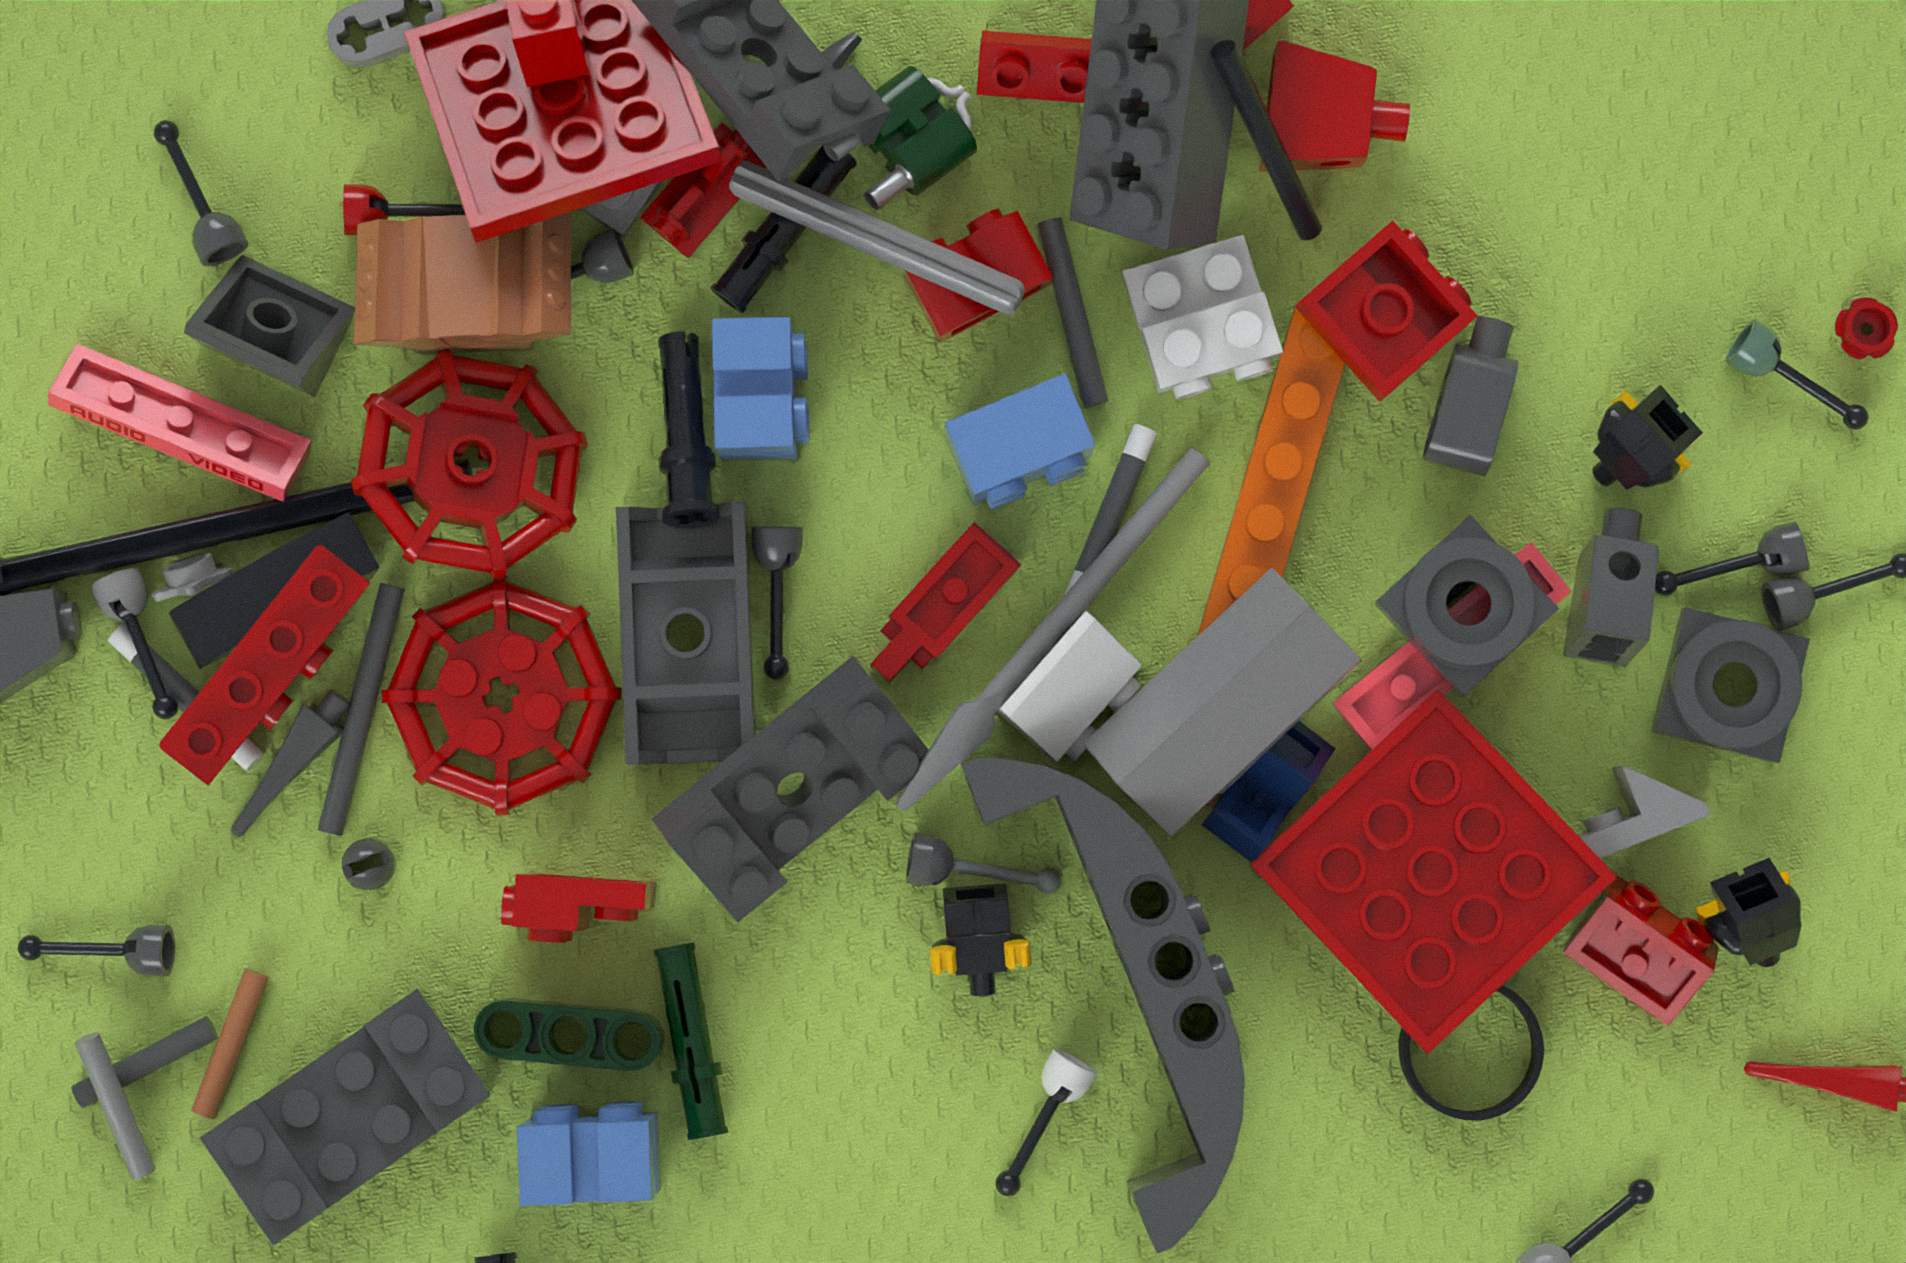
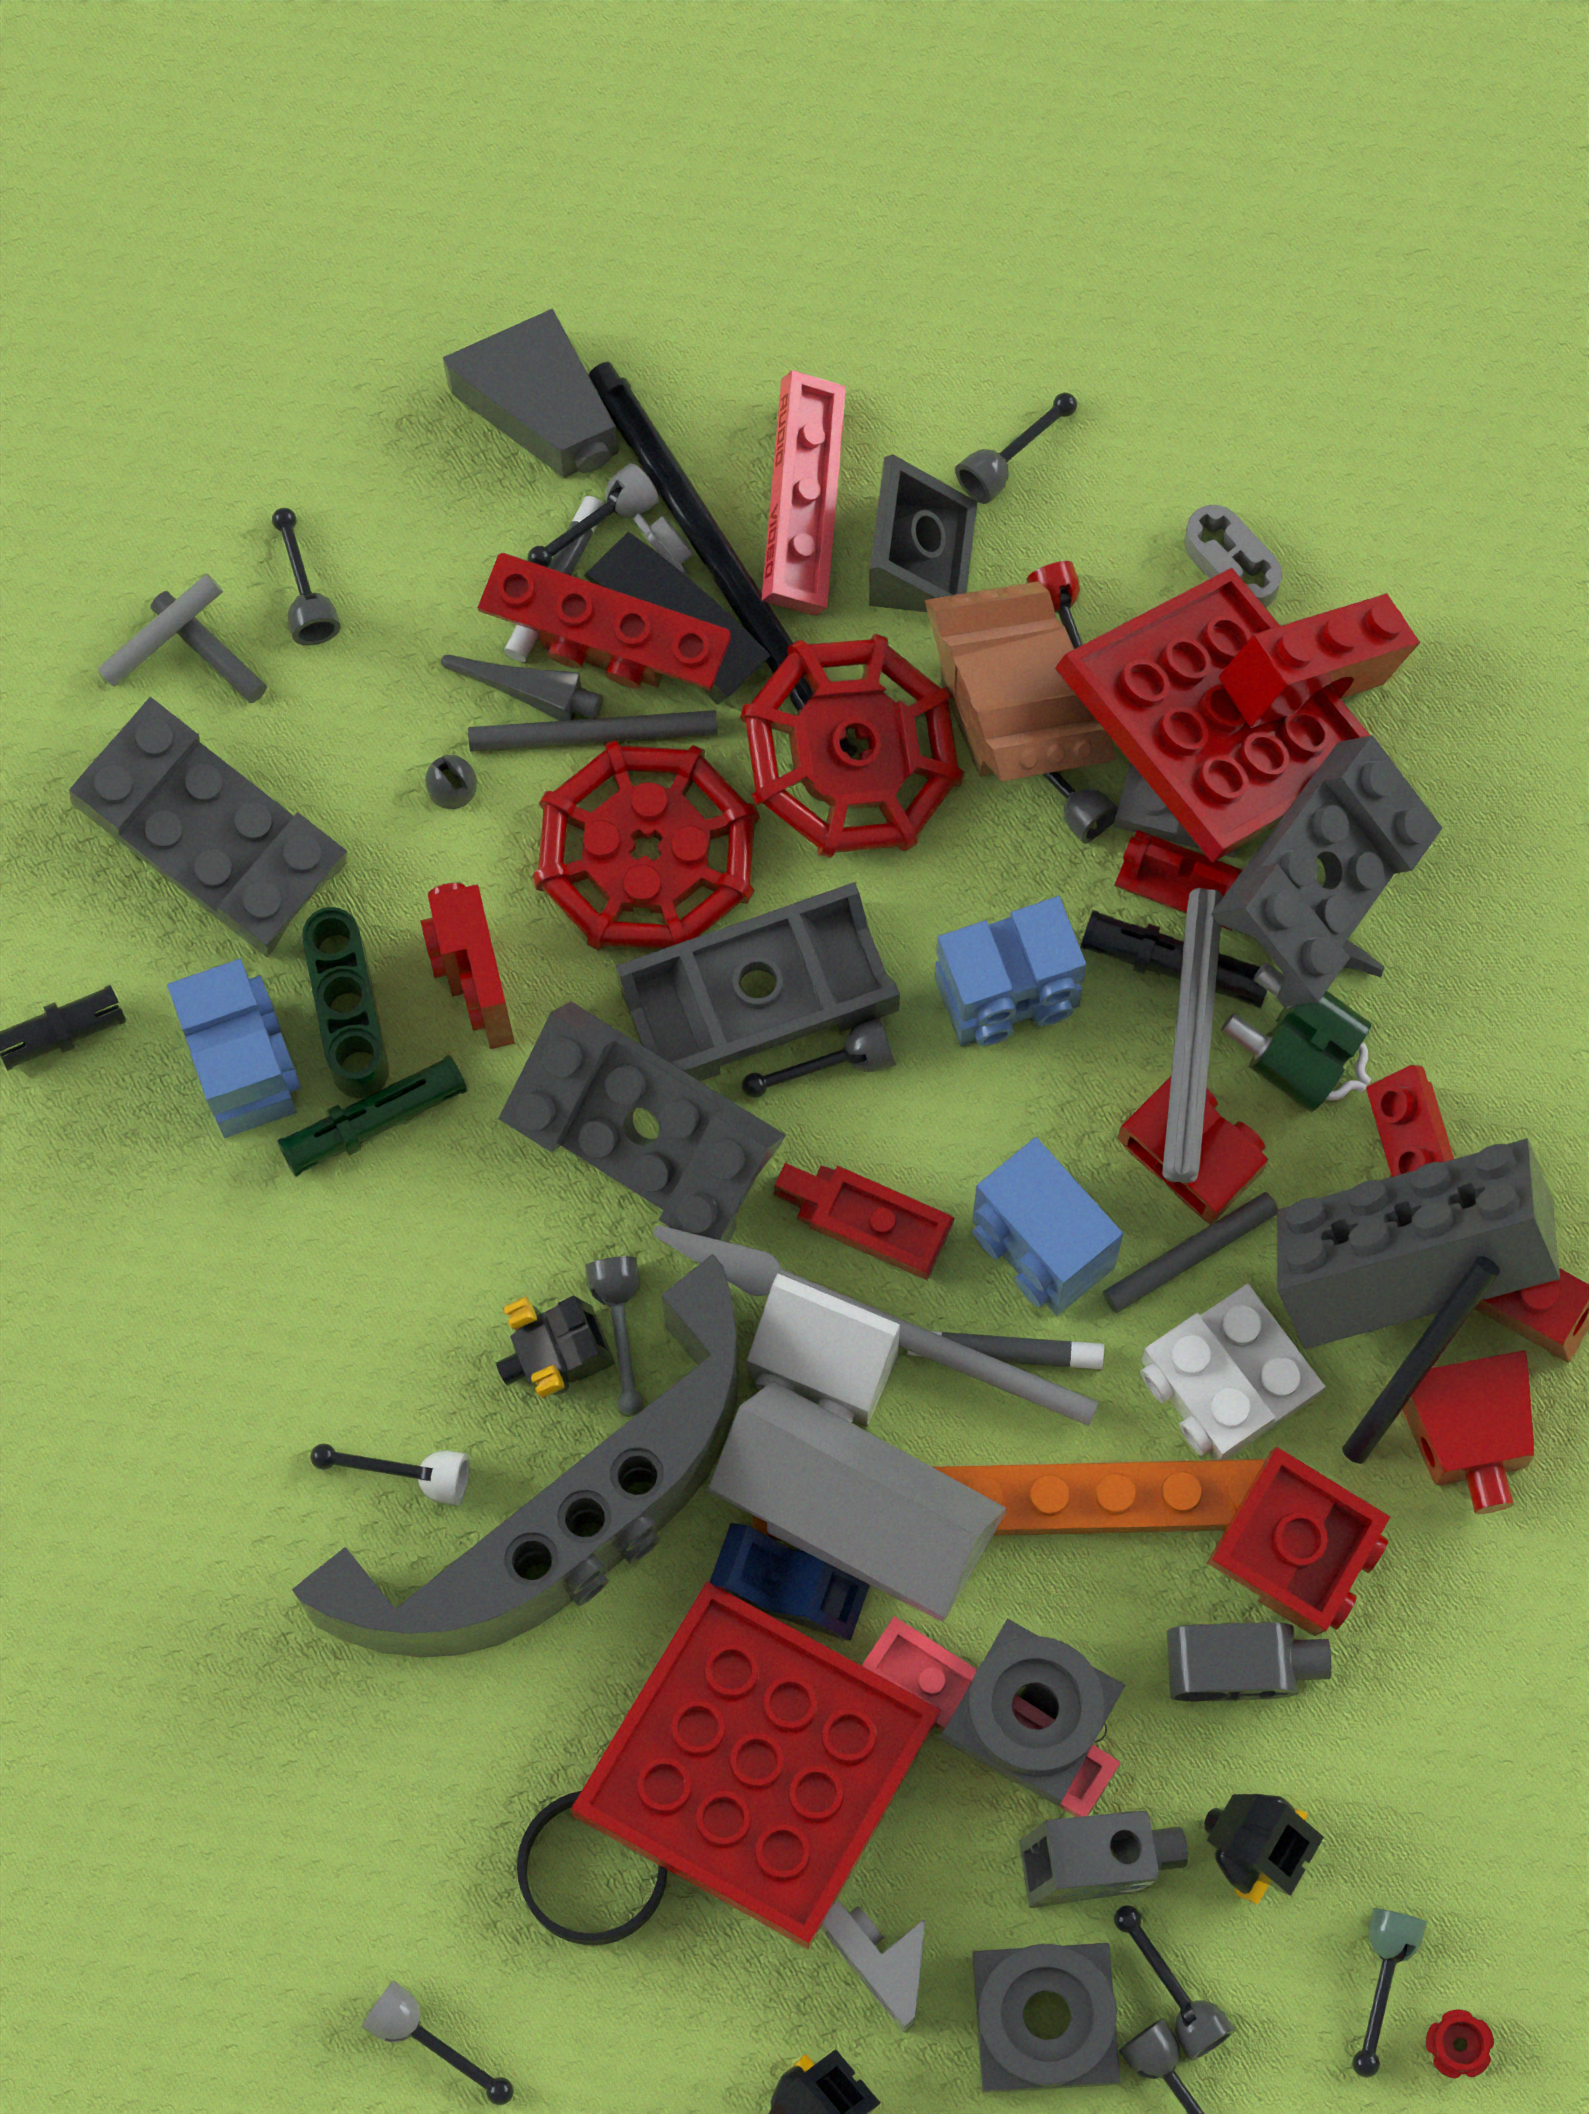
camera: 75 degrees right, 15 degrees down
(229, 1044) = (248, 713): nougat piece -> none
(687, 457) = (917, 931): black pin -> none
(1644, 949) = (748, 2010): red bracket -> none

